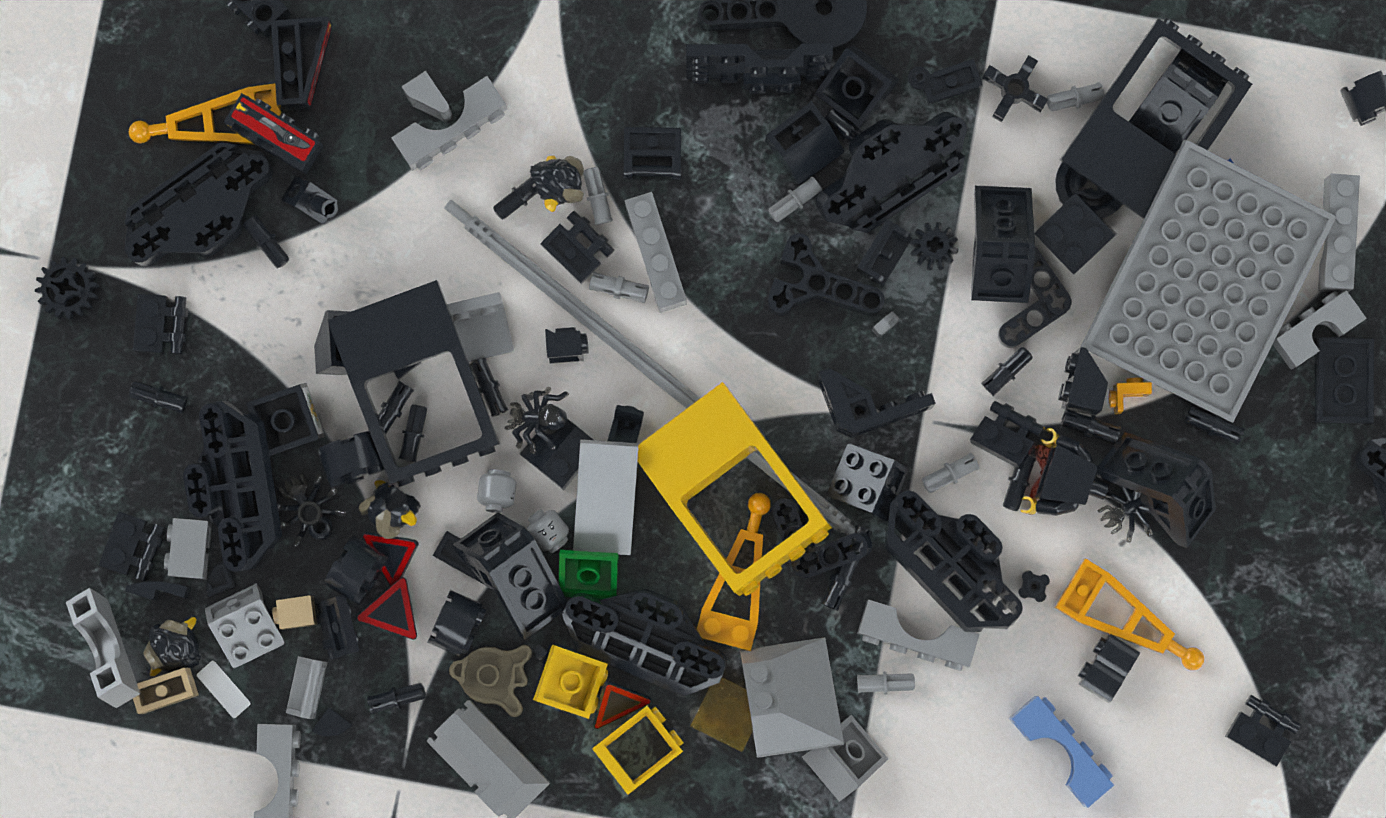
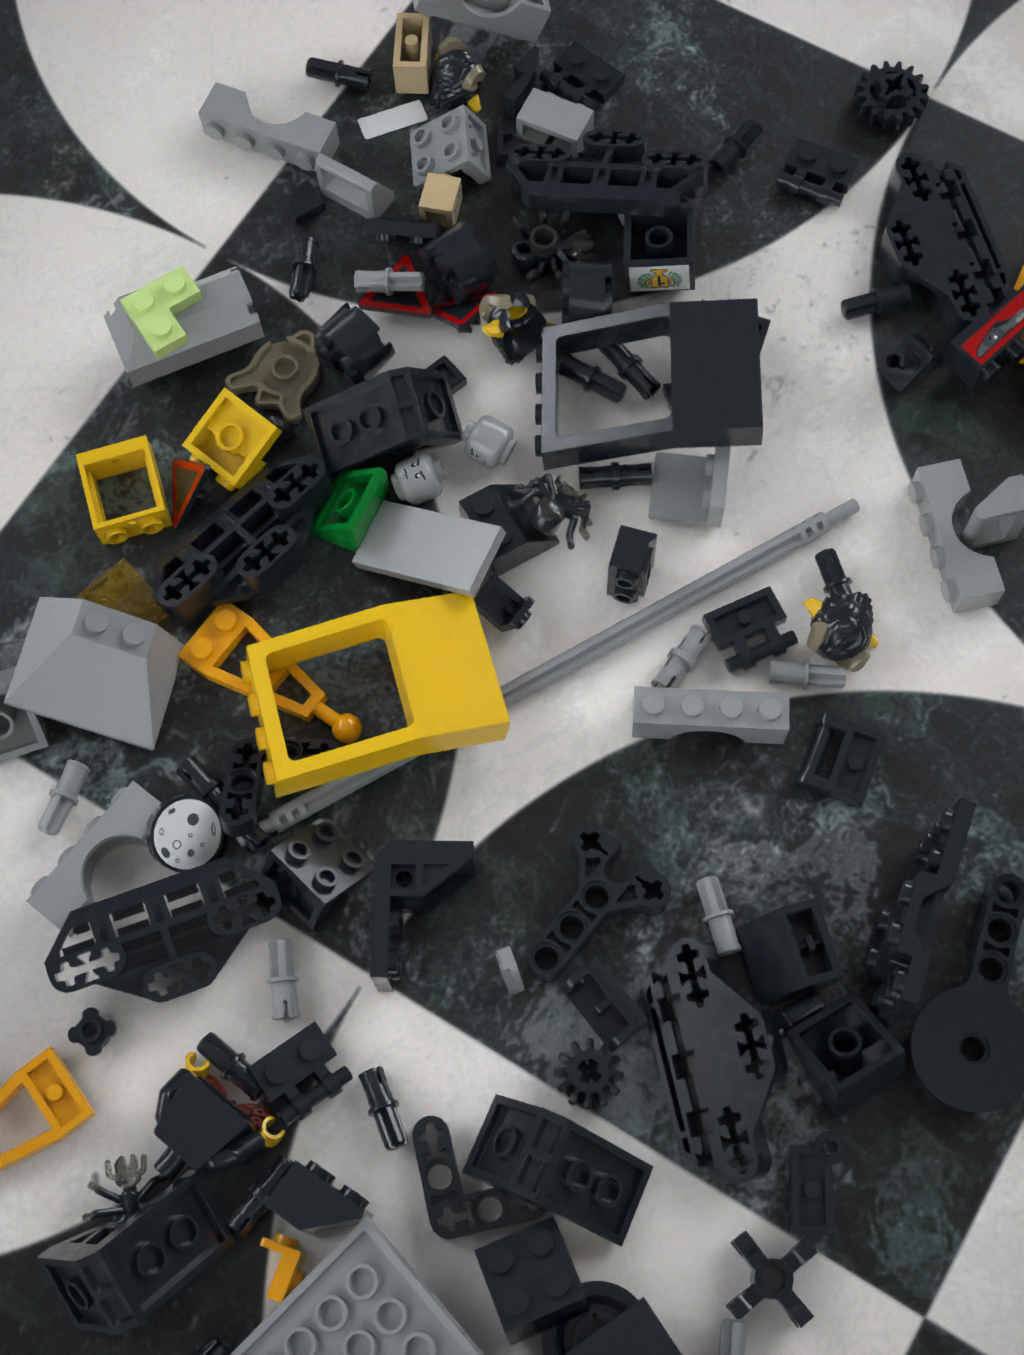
camera: 115 degrees right, 15 degrees down
(198, 750) = (339, 73): none -> black axle
(391, 617) = (388, 281): none -> light grey axle
(500, 777) = (154, 309): none -> yellowish green plate
(880, 581) = (184, 832): none -> white tile

